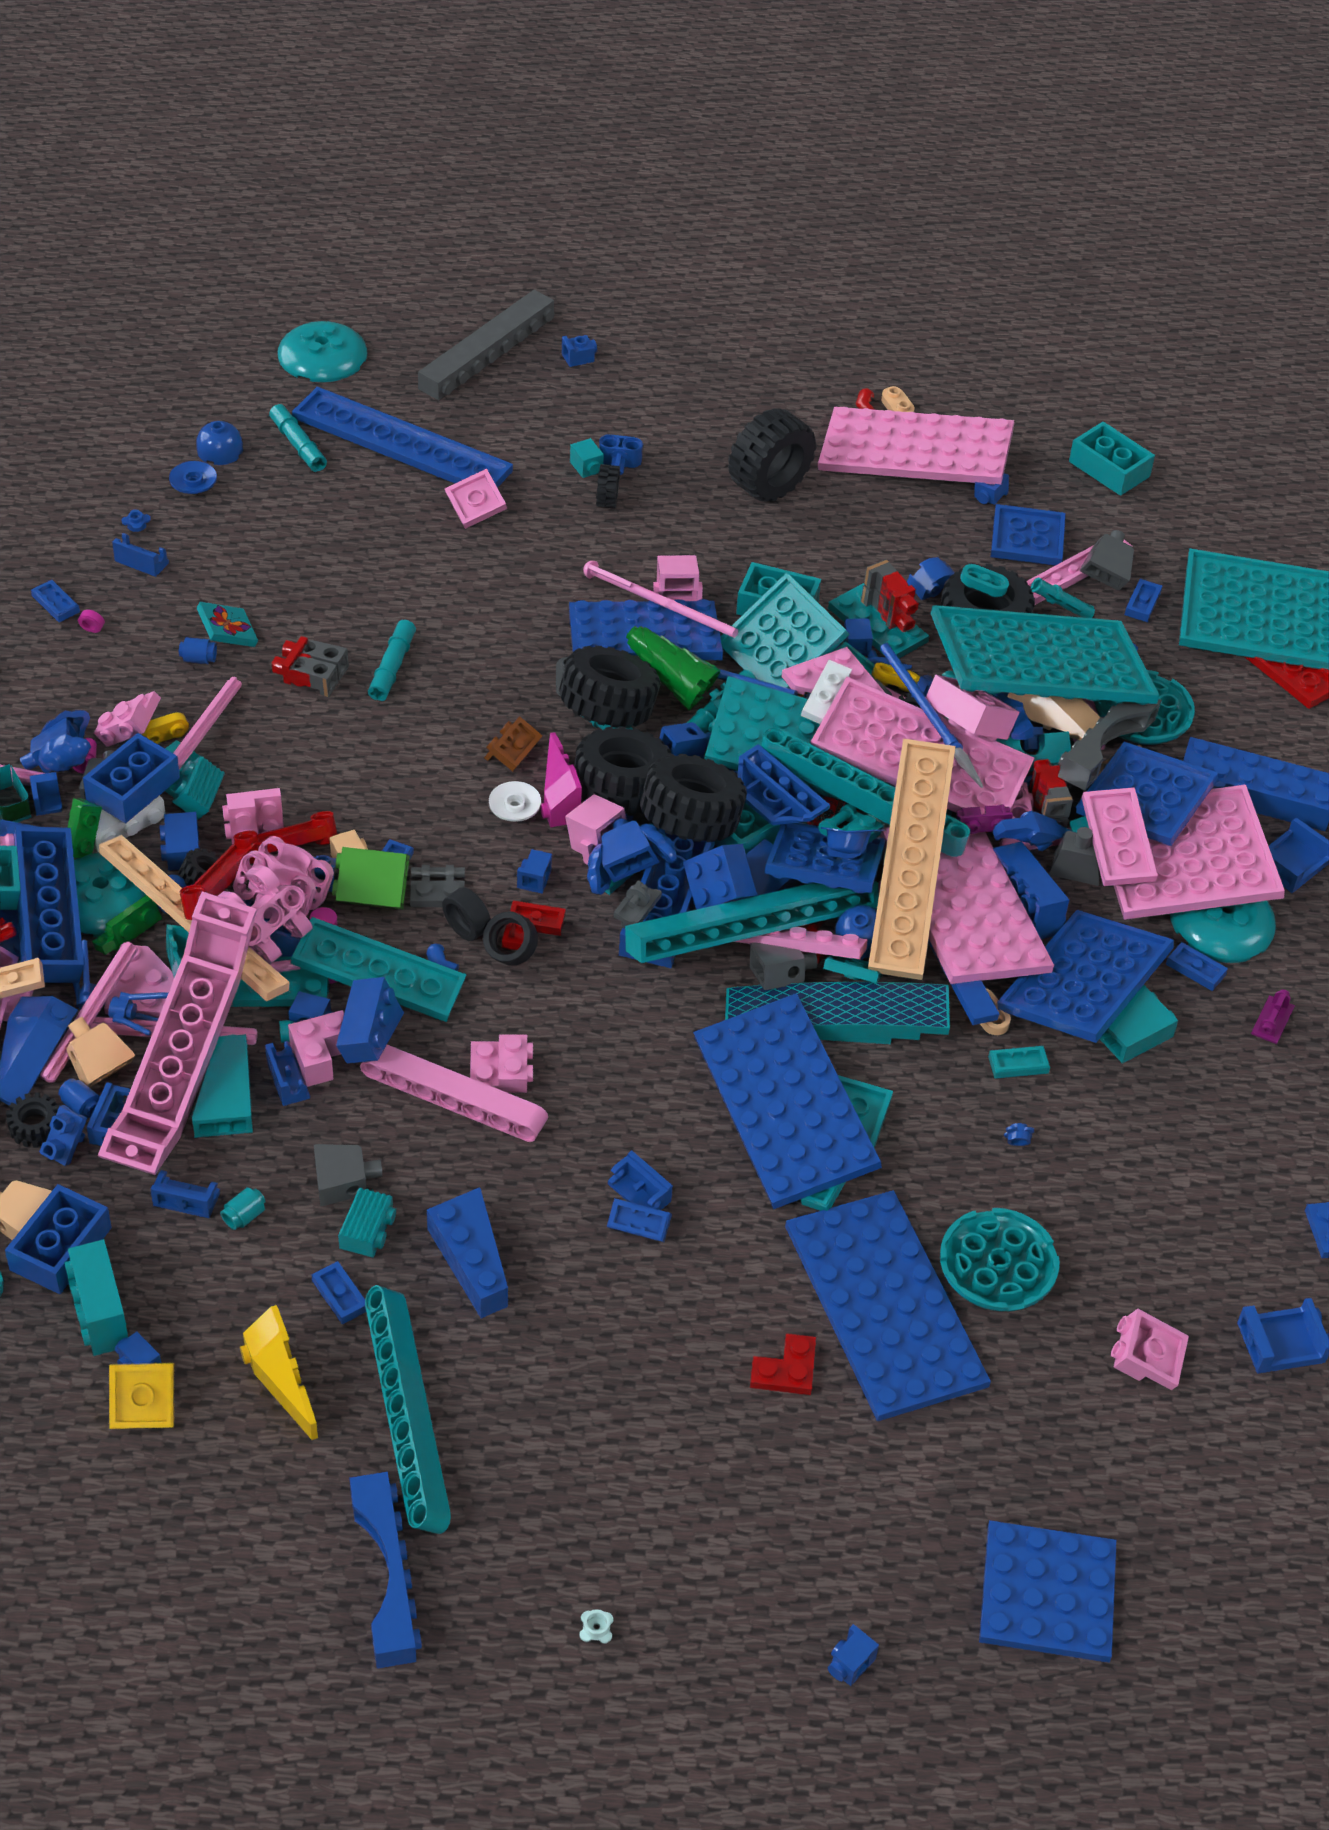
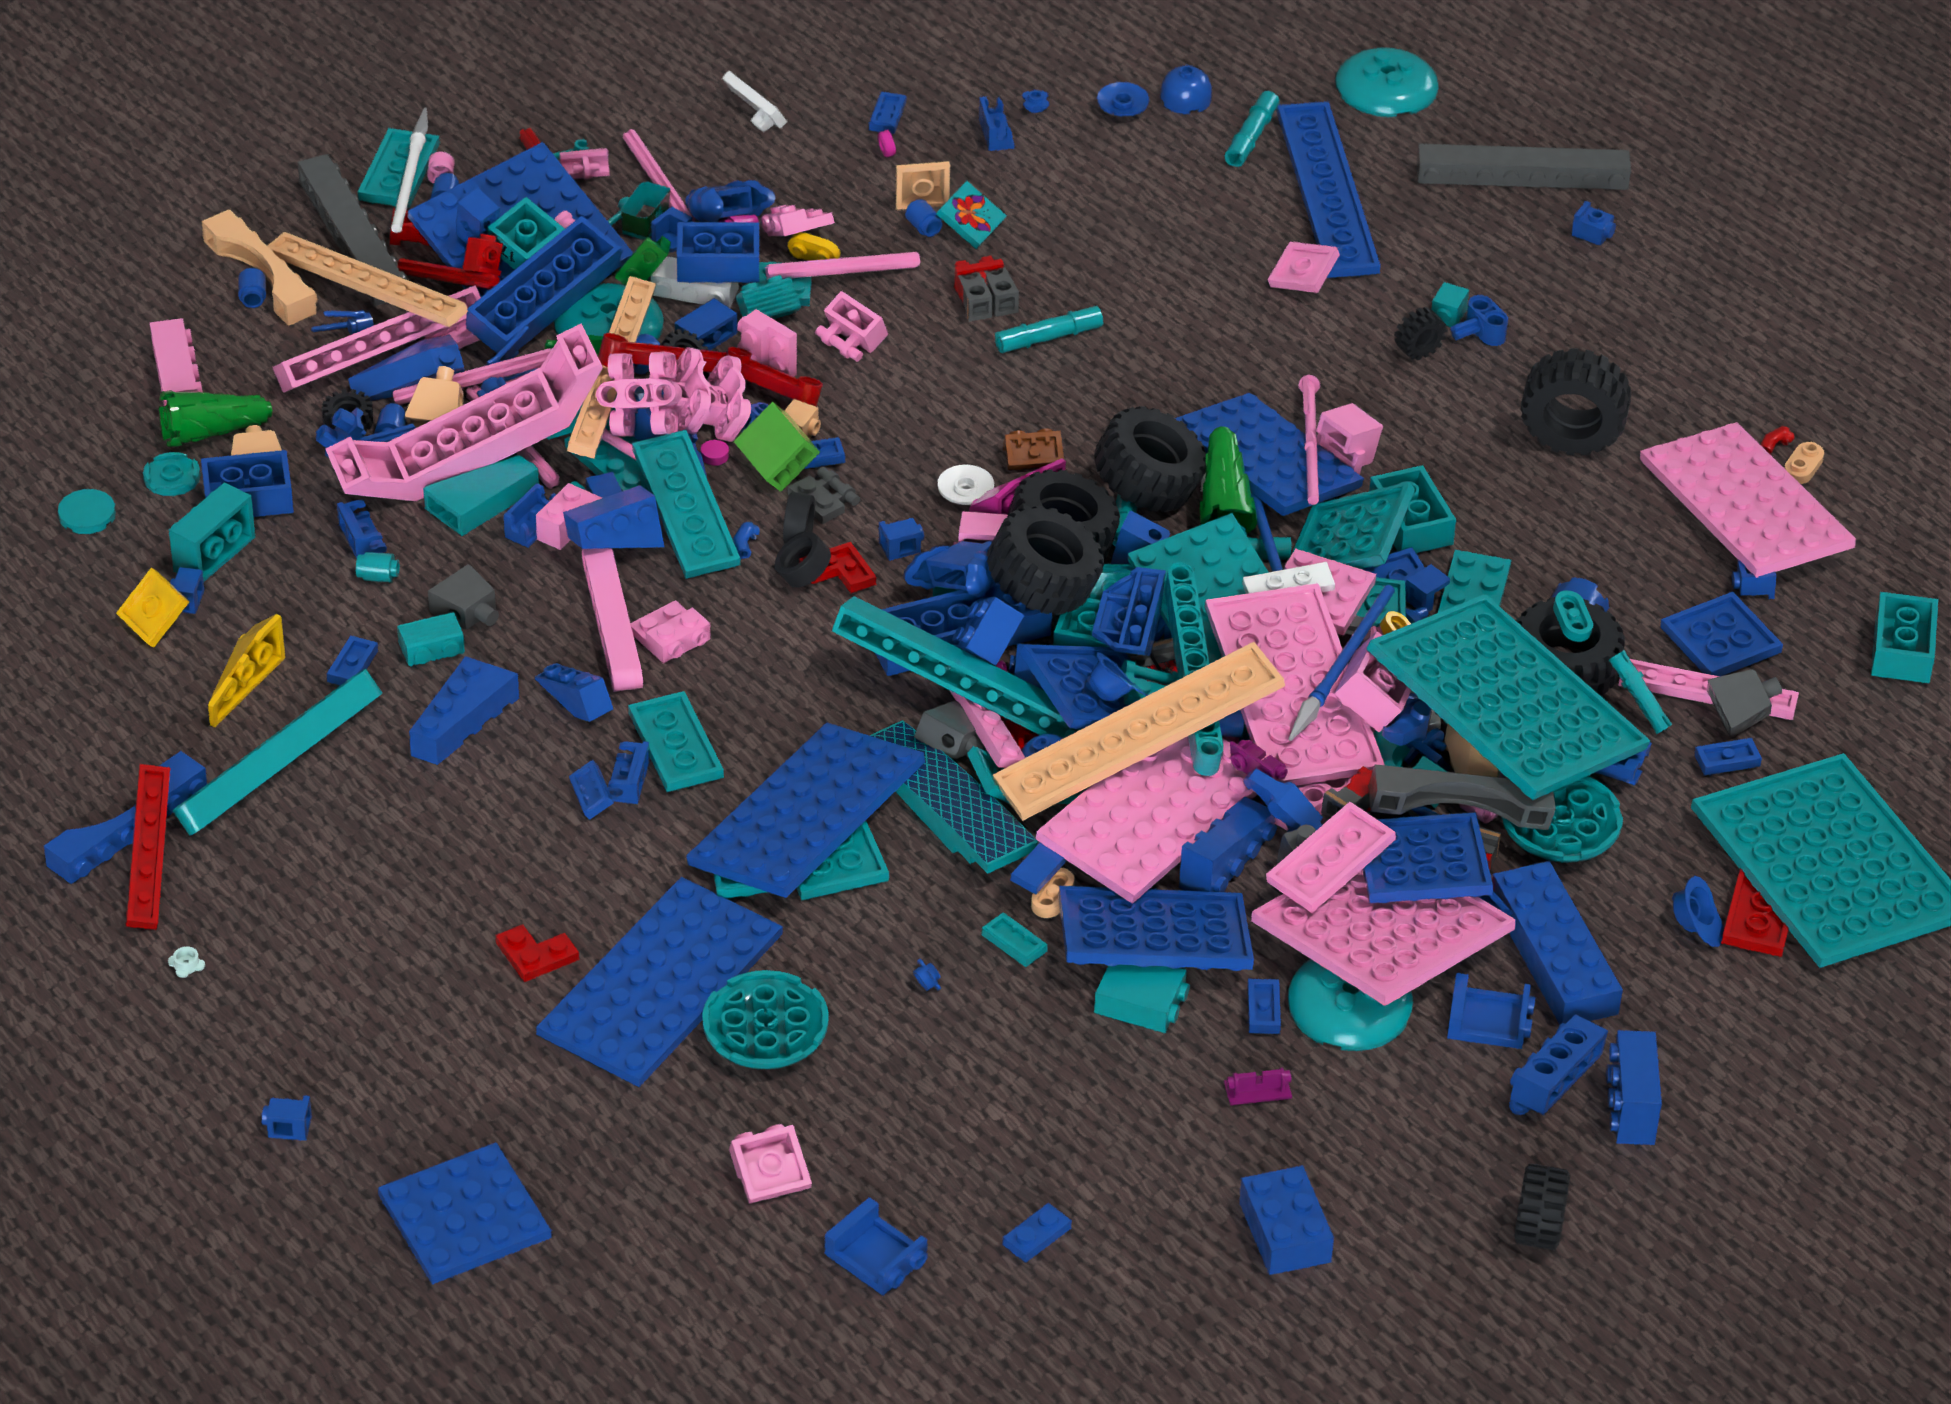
camera: 55 degrees right, 5 degrees down
(170, 626) = (924, 182): none -> light nougat slope
(278, 754) = (854, 322): none -> bright pink brick
(447, 1572) = (148, 847): none -> red plate
(517, 1163) = (577, 691): none -> blue slope
(618, 1129) = (676, 741): none -> teal plate
(637, 904) = (900, 597): dark grey hips -> none
(890, 595) = (1488, 565): hips -> none
(1278, 703) = (1697, 912): none -> blue piece

